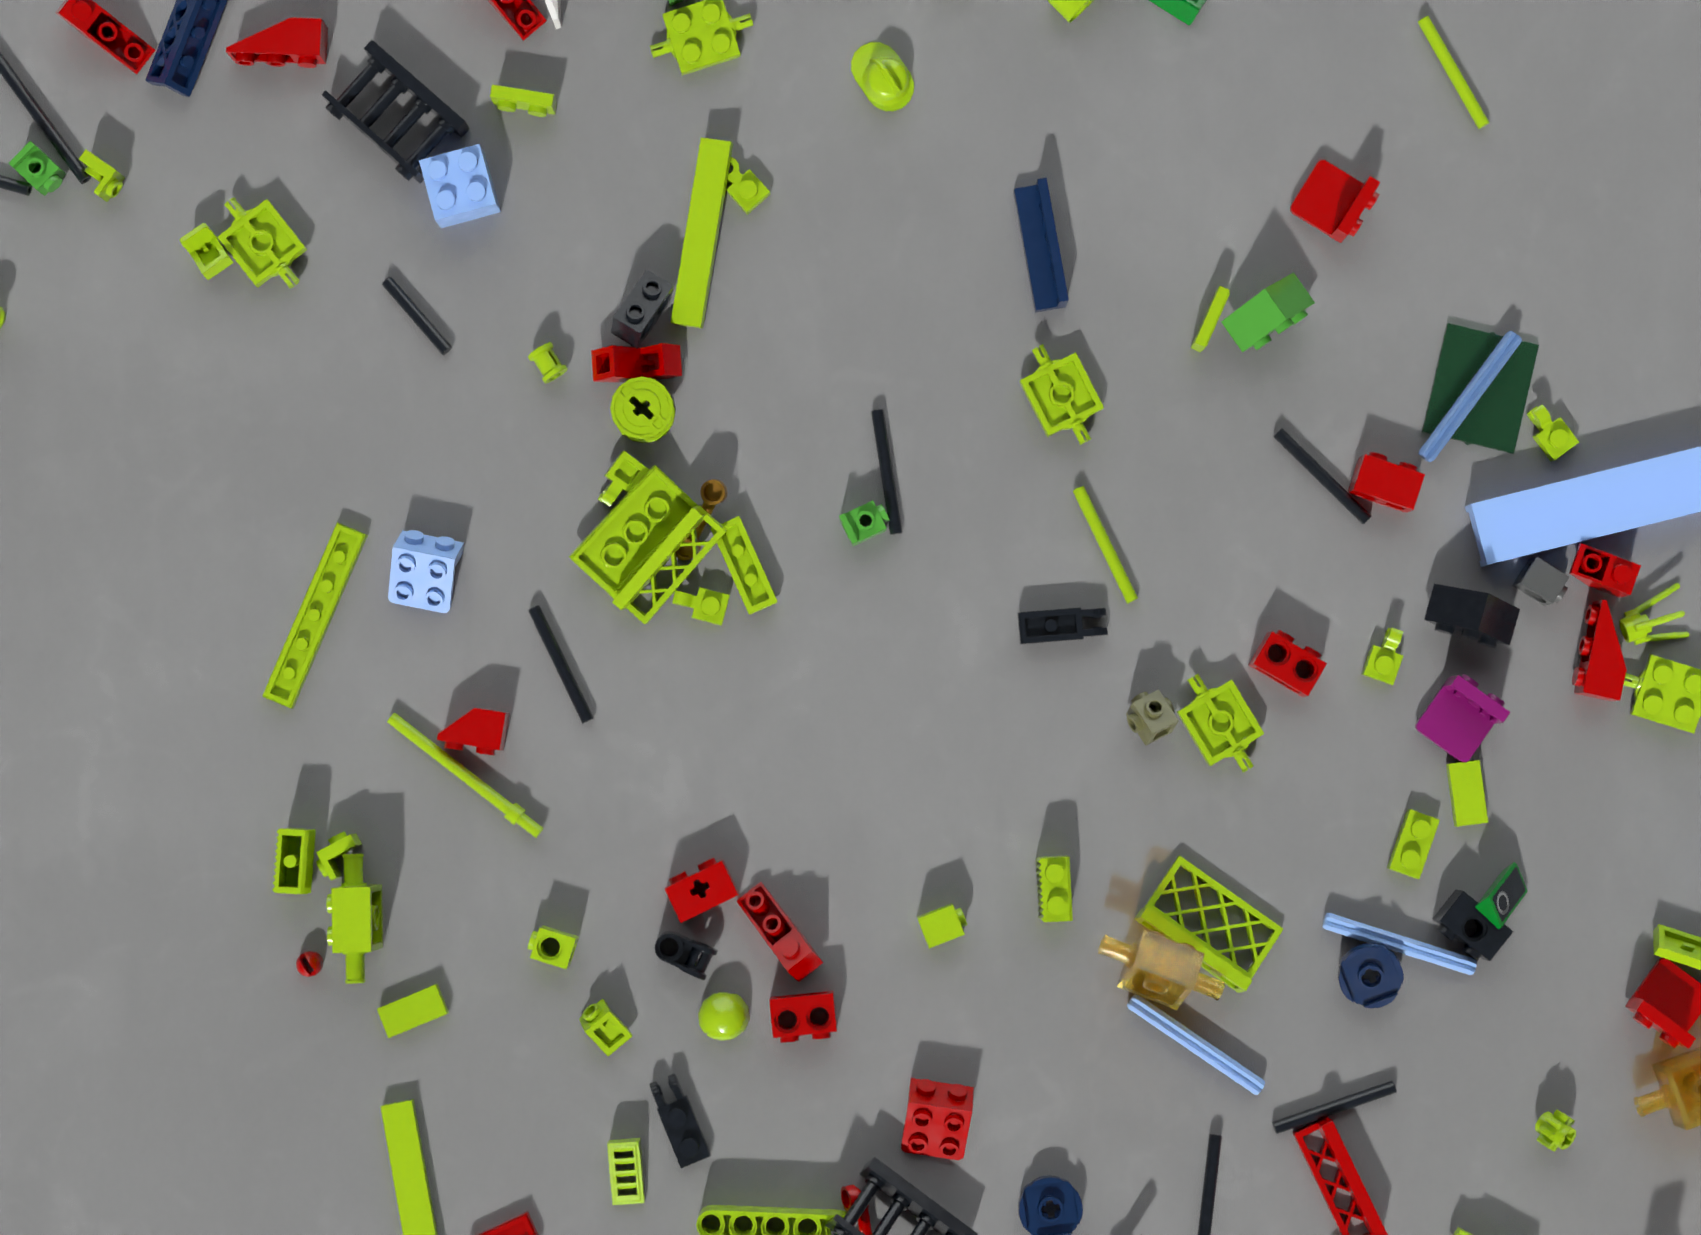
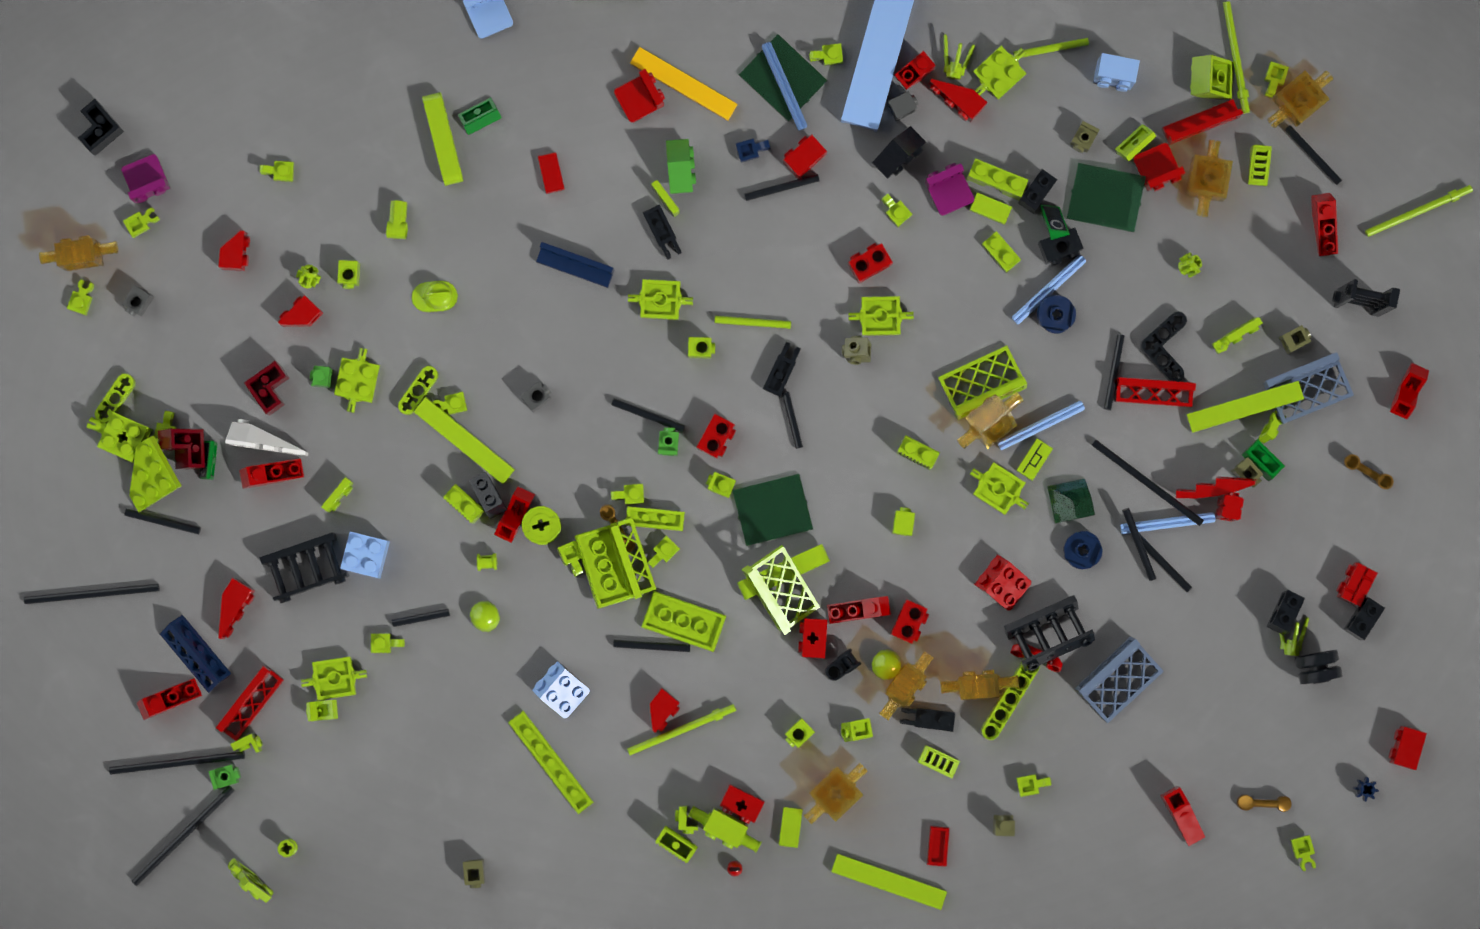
camera: 60 degrees left, 0 degrees up
(84, 593) = (468, 867): none -> olive brick
(164, 134) = (243, 699): none -> red fence
(352, 284) = (382, 643): none -> lime plate
(415, 907) = (735, 795): none -> red brick
(469, 404) = (484, 616): none -> lime hair
(477, 1059) = (823, 791): none -> clear yellow brick
(610, 282) = (464, 504): none -> lime brick
(621, 690) = (683, 621): none -> lime tile
(707, 1062) = (905, 684): none -> clear yellow brick
(724, 785) = (766, 597): none -> fence
(759, 124) = (406, 399): none -> lime beam
(761, 512) = (632, 494): none -> lime plate
(768, 1171) = (979, 685): none -> clear yellow brick
(772, 792) = (804, 562): none -> lime beam
(816, 286) = (535, 405): none -> dark grey brick
(846, 631) = (720, 484): none -> lime bracket
(853, 726) = (772, 509): none -> clear green piece
(910, 576) = (712, 435): none -> red brick
(997, 681) = (792, 420): none -> black bar
(1025, 476) = (694, 341): none -> lime brick
(1069, 1035) = (999, 488): none -> lime plate
(1111, 1150) = (1070, 501): none -> clear green slope
(1141, 1063) = (1034, 459): none -> lime tile
(1152, 138) = (551, 173): none -> red tile
(1162, 339) = (661, 229): none -> black hinge
(1349, 398) = (749, 150): none -> dark blue plate
(1388, 253) = (684, 84): none -> yellow tile
(1405, 1154) = (1160, 350): none -> black beam
(1520, 797) = (995, 177): none -> lime arch
(1533, 846) = (1037, 191): none -> black brick
(1581, 951) = (1106, 197): none -> clear green piece
(1663, 870) = (1088, 130): none -> olive brick

